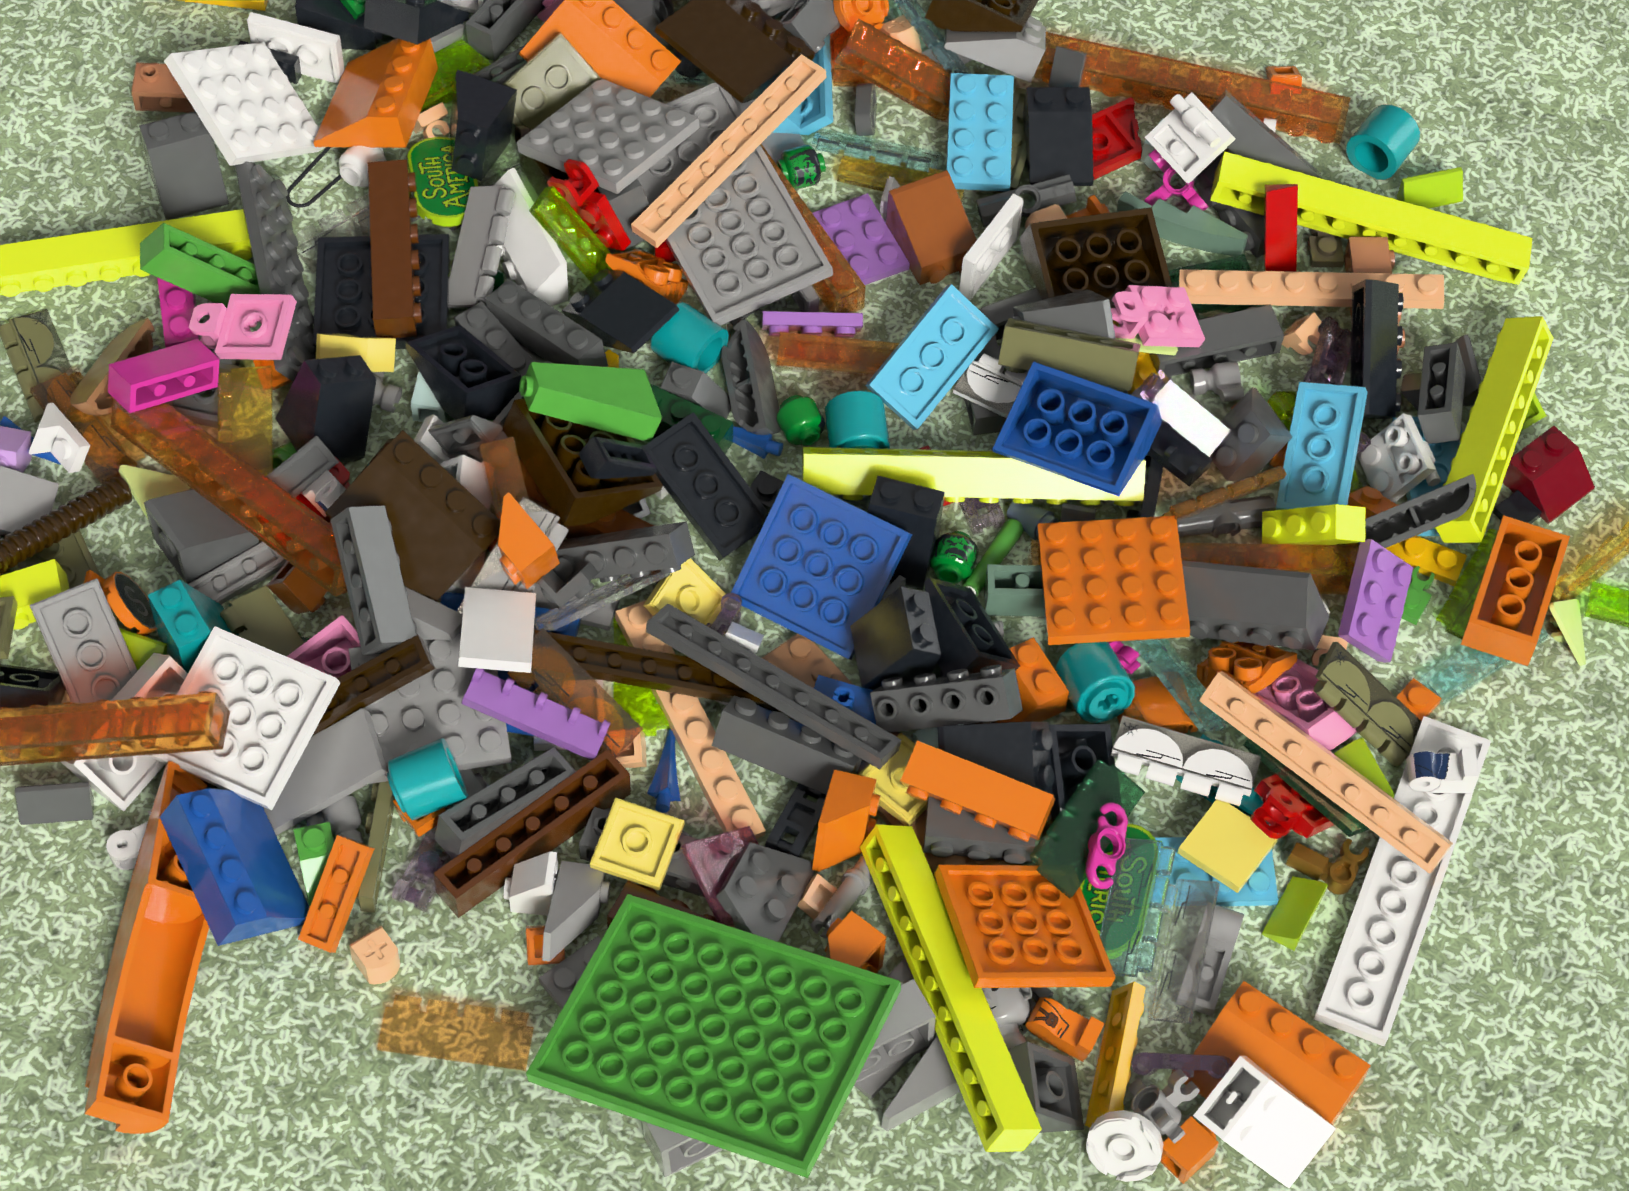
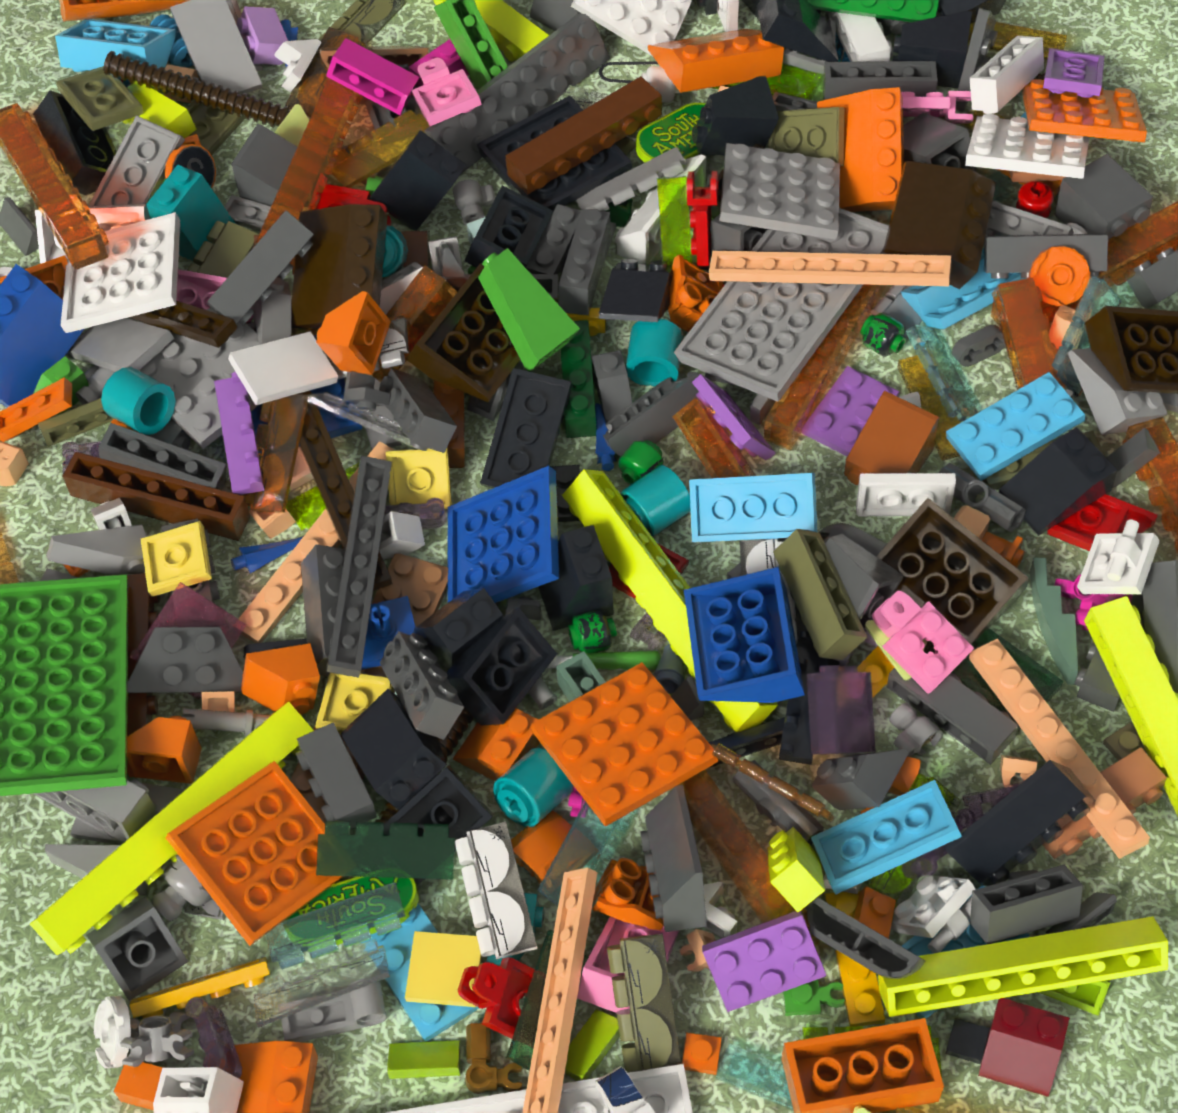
camera: 65 degrees right, 0 degrees up
(303, 467) = (355, 191): dark grey tile -> none
(375, 351) = (482, 170): light yellow slope -> none
(614, 459) = (473, 361): black slope -> none
(978, 791) = (346, 747): orange brick -> none
(1064, 1028) = (202, 936): orange leg -> none
(1096, 856) = (358, 871): dark pink piece -> none
(1280, 227) = (1093, 688): red slope -> none

